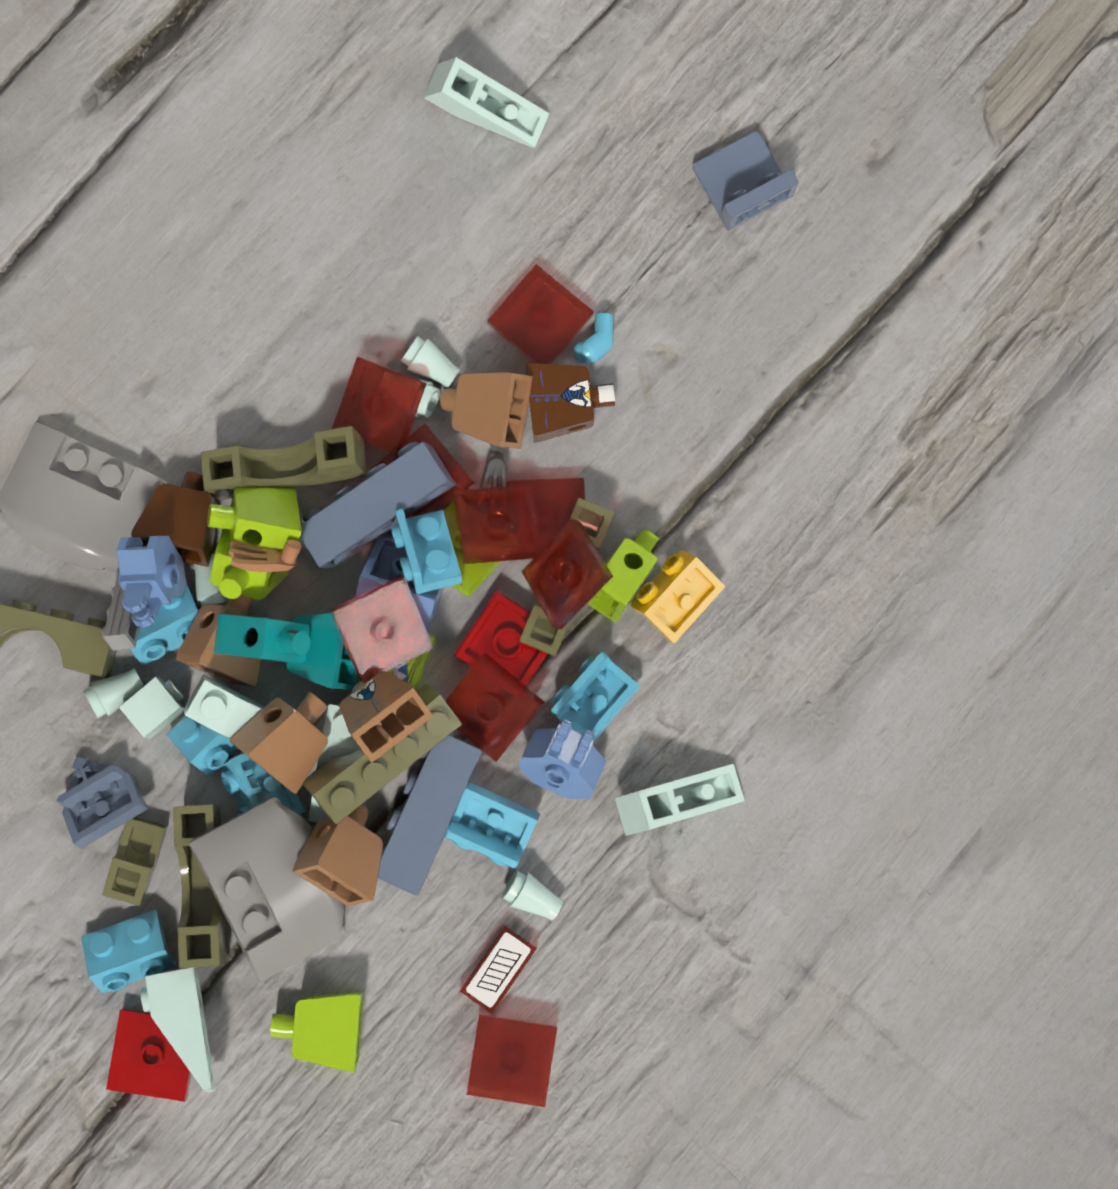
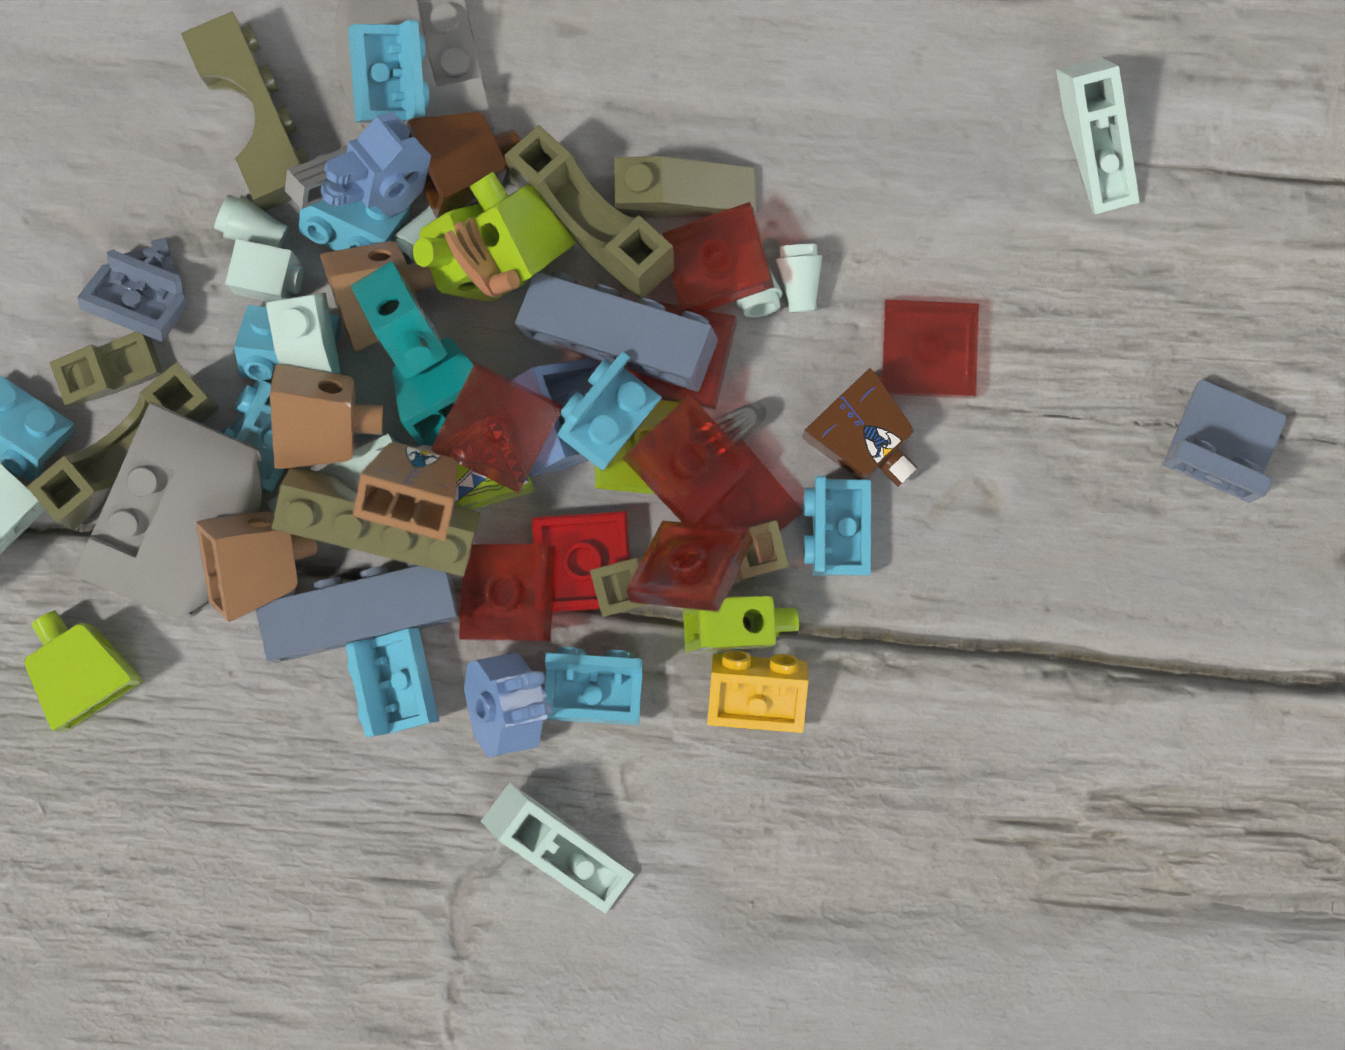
camera: 60 degrees right, 0 degrees up
(87, 522) = (388, 70): none -> medium azure bracket
(311, 394) = (680, 186): none -> olive slope
(490, 407) = (799, 367): medium nougat torso -> none
(498, 969) = (259, 795): tile -> none
(512, 1060) = (180, 876): clear red plate -> none
(529, 895) = (353, 773): light aqua cone -> none
(599, 343) = (949, 425): medium azure arm -> none
(611, 462) = (840, 527): none -> medium azure bracket

